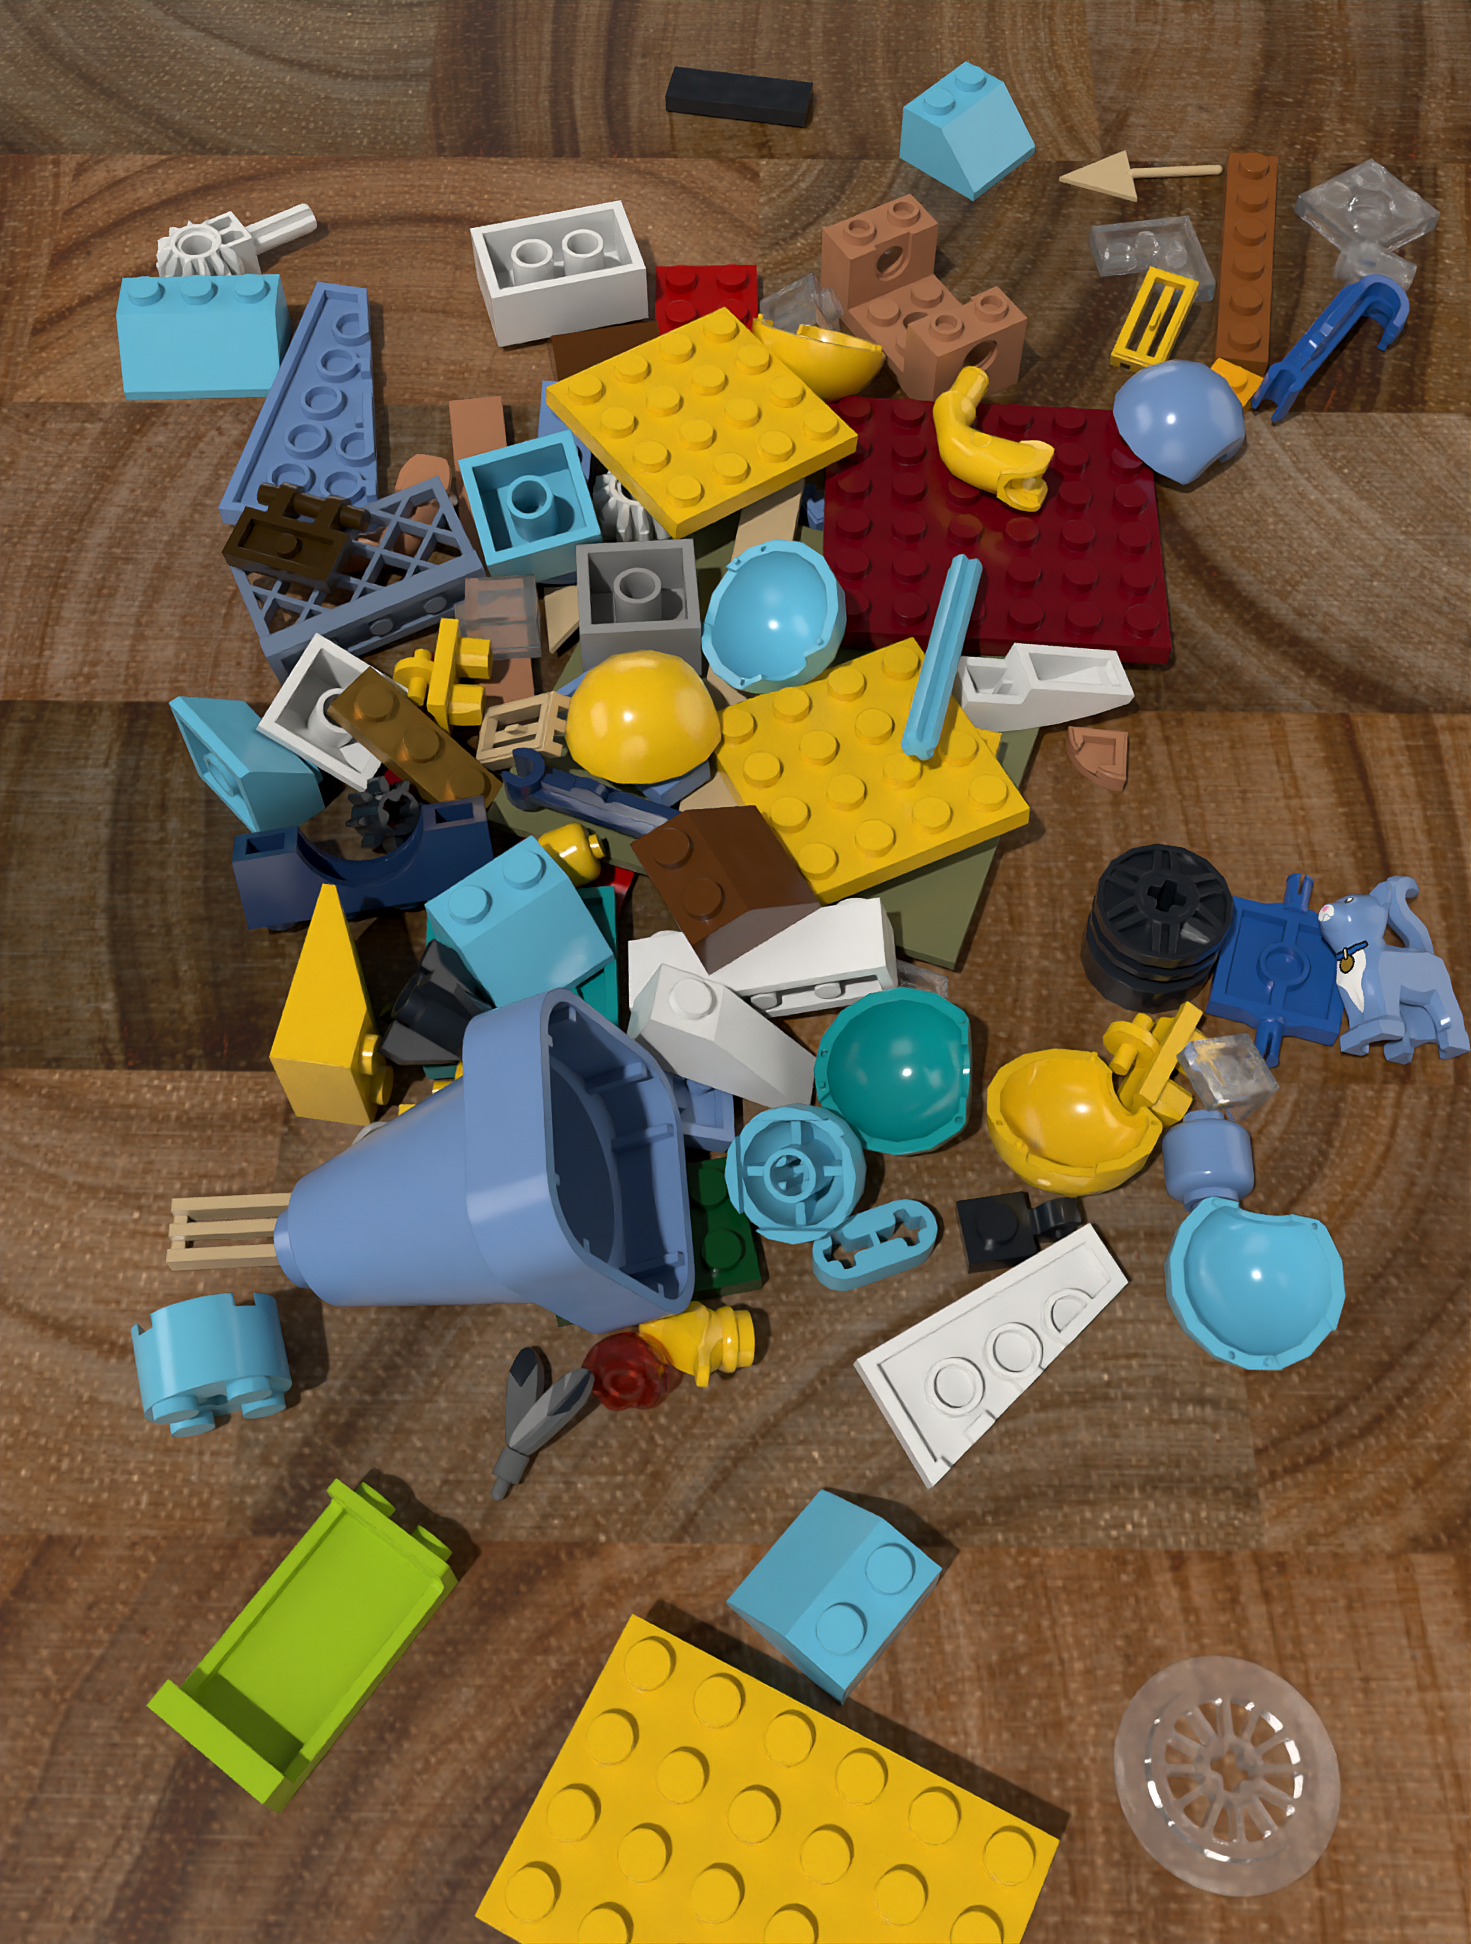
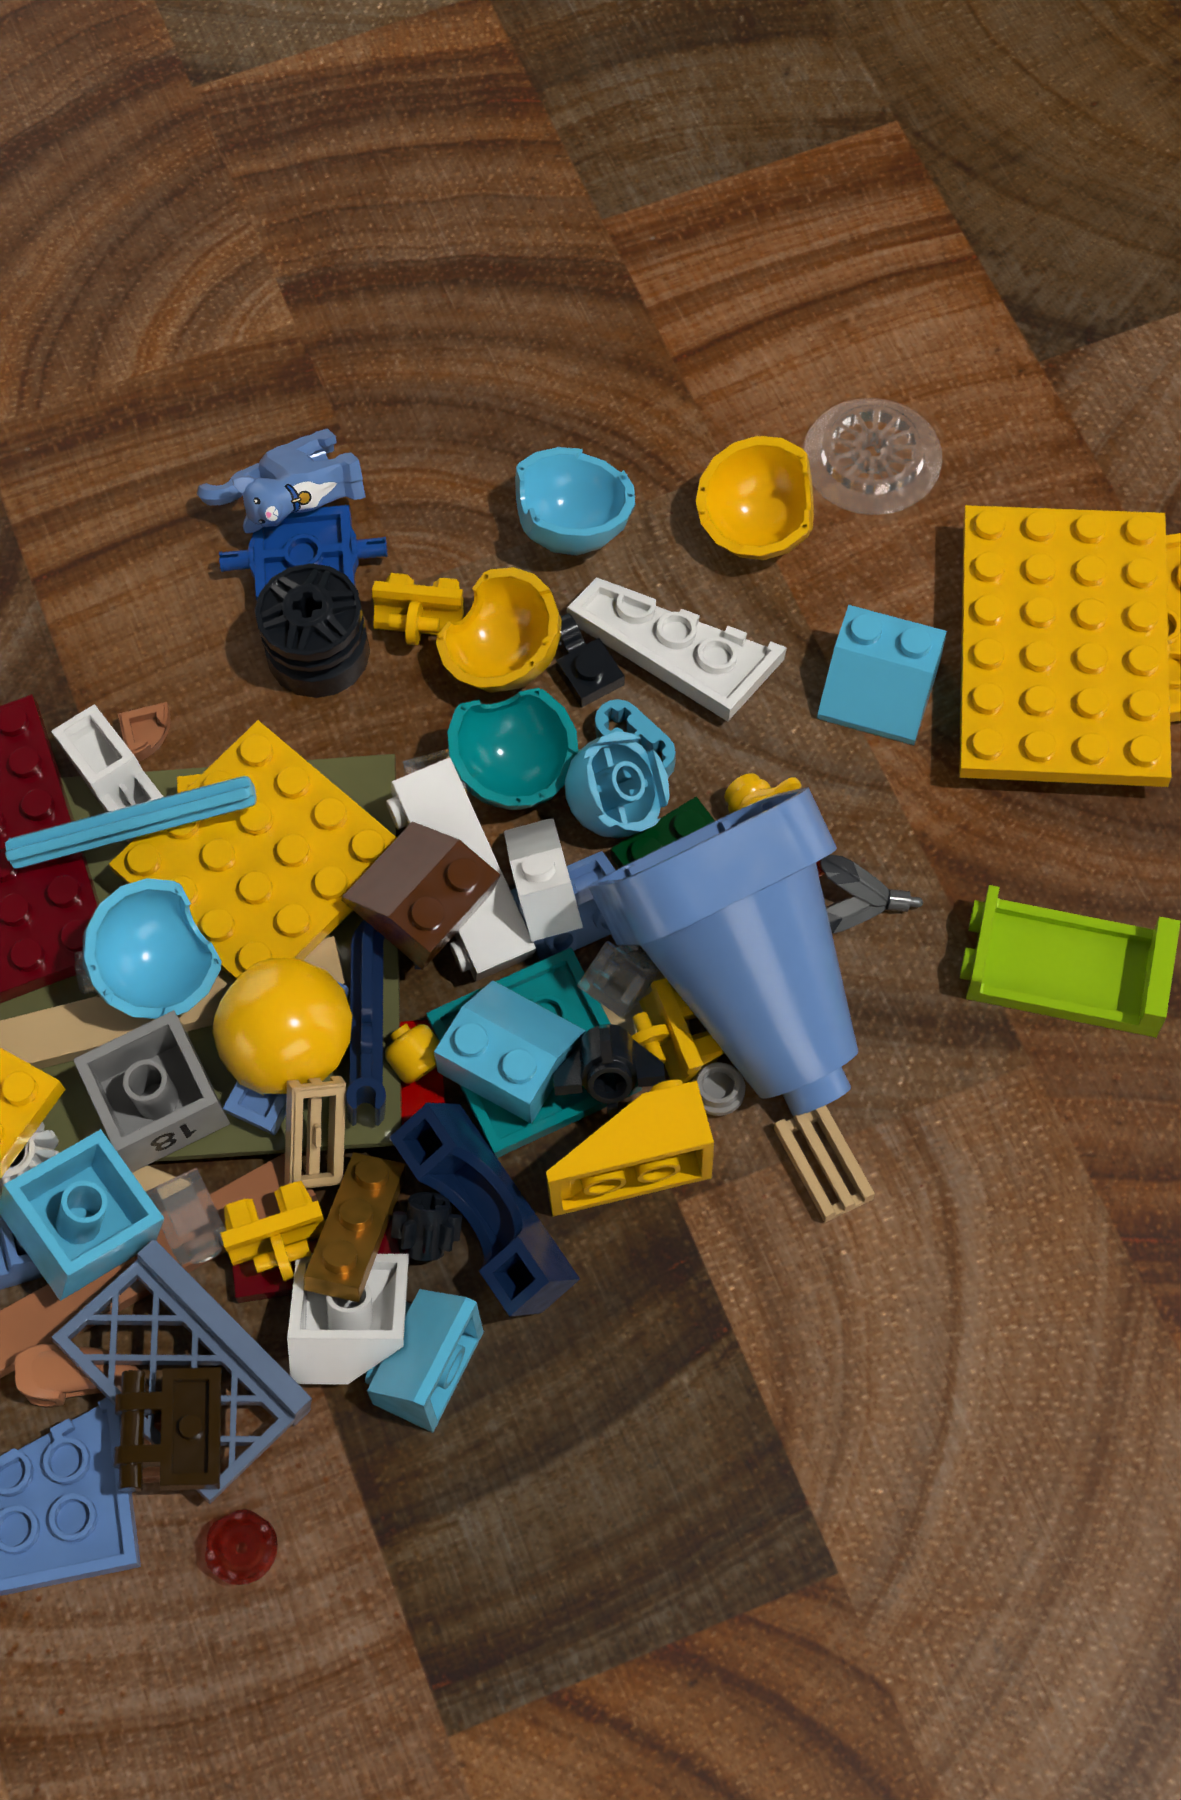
camera: 110 degrees left, 5 degrees up
(185, 589) = (222, 1544): none -> clear red plate
(211, 1362) = (937, 1099): medium azure brick -> none
(1170, 1530) = (757, 497): none -> yellow cylinder
(1207, 1159) = (485, 548): medium blue head -> none
(1228, 1074) = (418, 553): clear bracket -> none

